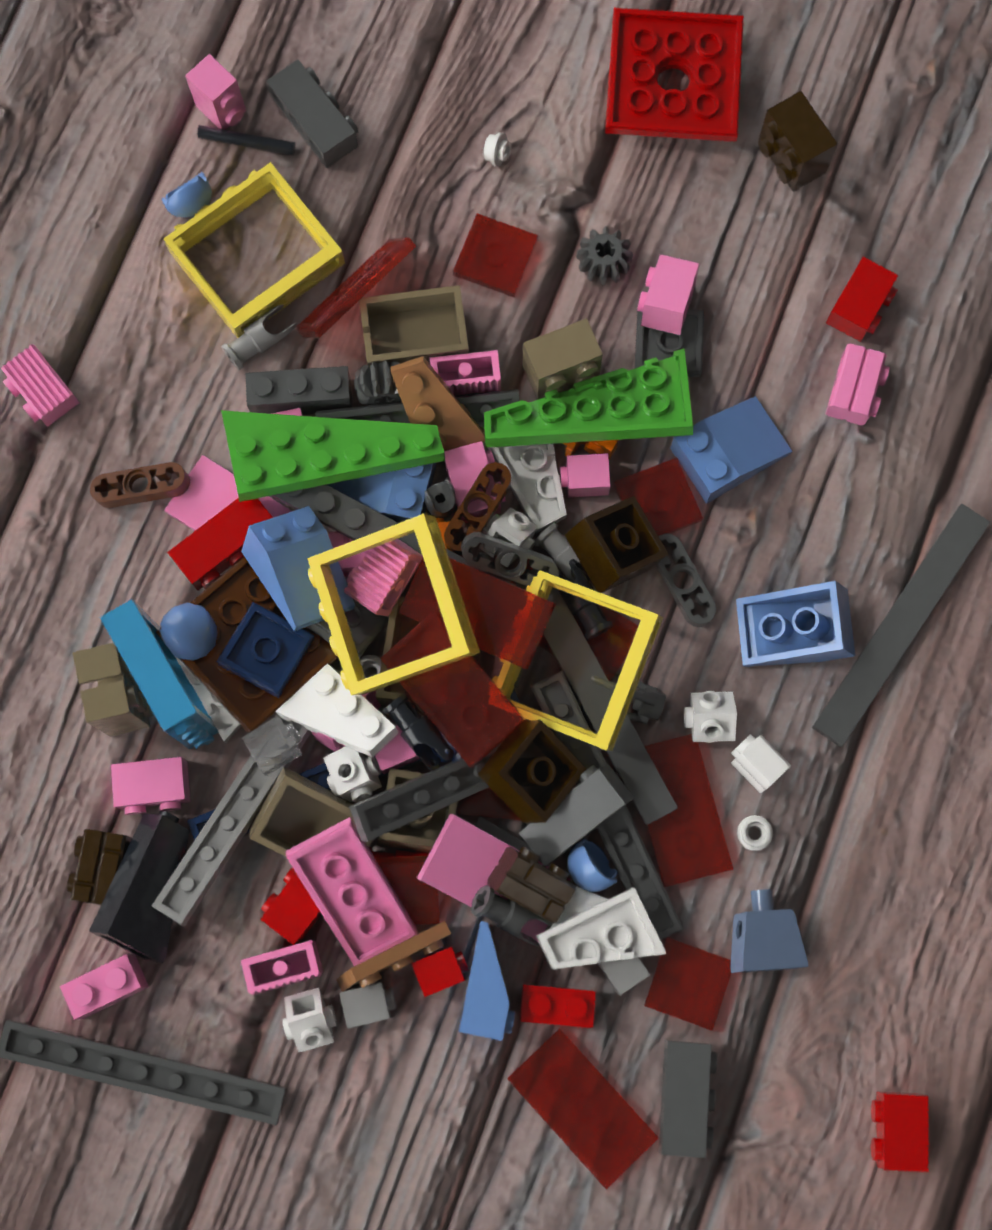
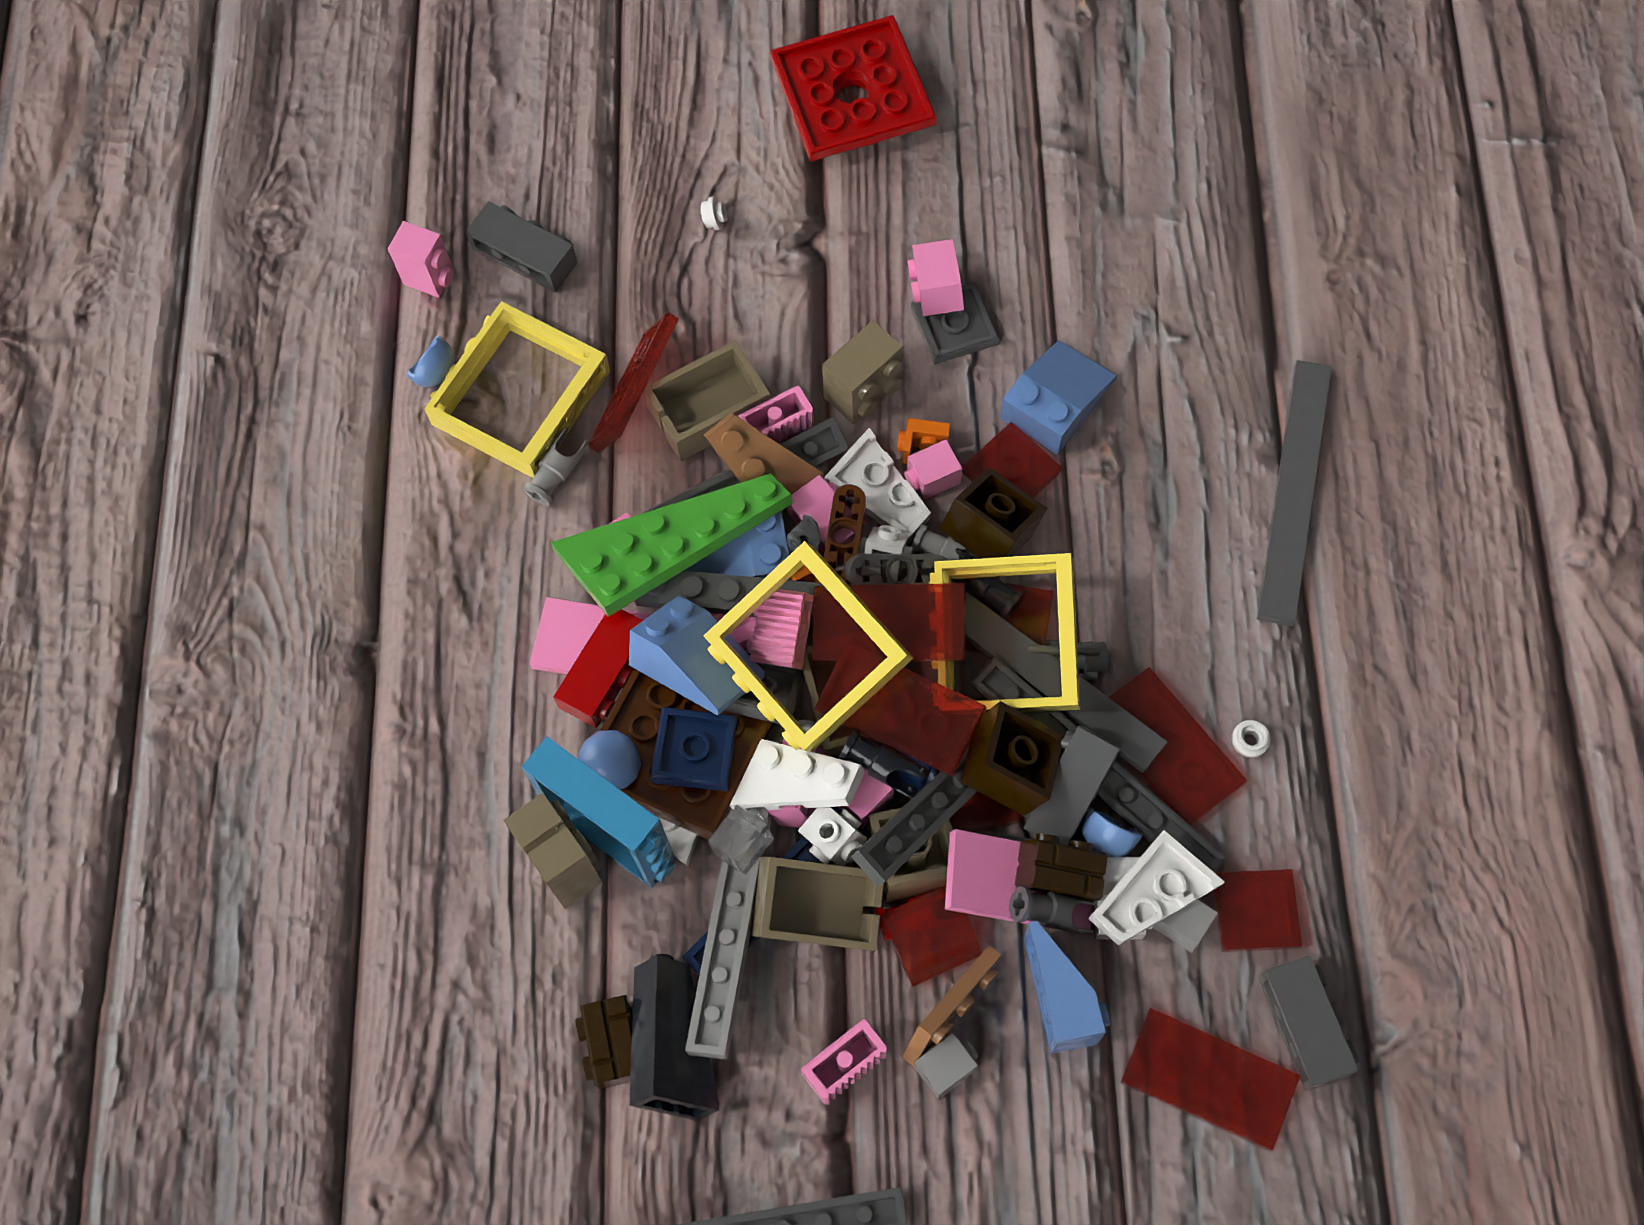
camera: 20 degrees left, 10 degrees down
(39, 385) = (353, 594): bright pink brick -> none
(104, 986) = (666, 1161): bright pink brick -> none
(150, 784) = (628, 936): bright pink brick -> none
(154, 490) = (479, 647): reddish brown beam -> none
(246, 140) = (466, 295): black bar -> none
(291, 911) = (832, 991): red brick -> none
(299, 388) = (627, 491): dark grey brick -> none
(308, 1027) = (895, 1104): white brick -> none
(351, 892) = (883, 951): bright pink tile -> none
(375, 384) = (694, 461): dark grey gear -> none
(440, 971) = (1005, 1000): red brick -> none
(495, 255) = (753, 308): clear red tile -> none
(557, 1006) = (1140, 983): red brick -> none
(607, 407) = (927, 395): bright green wing -> none
(611, 264) = (859, 268): dark grey gear -> none
(702, 598) = (1067, 516): dark grey beam -> none
(711, 716) = (1159, 643): white brick -> none
(759, 762) = (1225, 665): white brick -> none
(766, 937) = (1312, 831): sand blue torso -> none
(796, 141) = (993, 102): dark brown brick -> none
(796, 625) = (1197, 529): medium blue slope -> none
(856, 385) = (1149, 292): bright pink brick -> none
(862, 298) = (1118, 217): red brick -> none
(901, 1131) = (1533, 965): red brick -> none

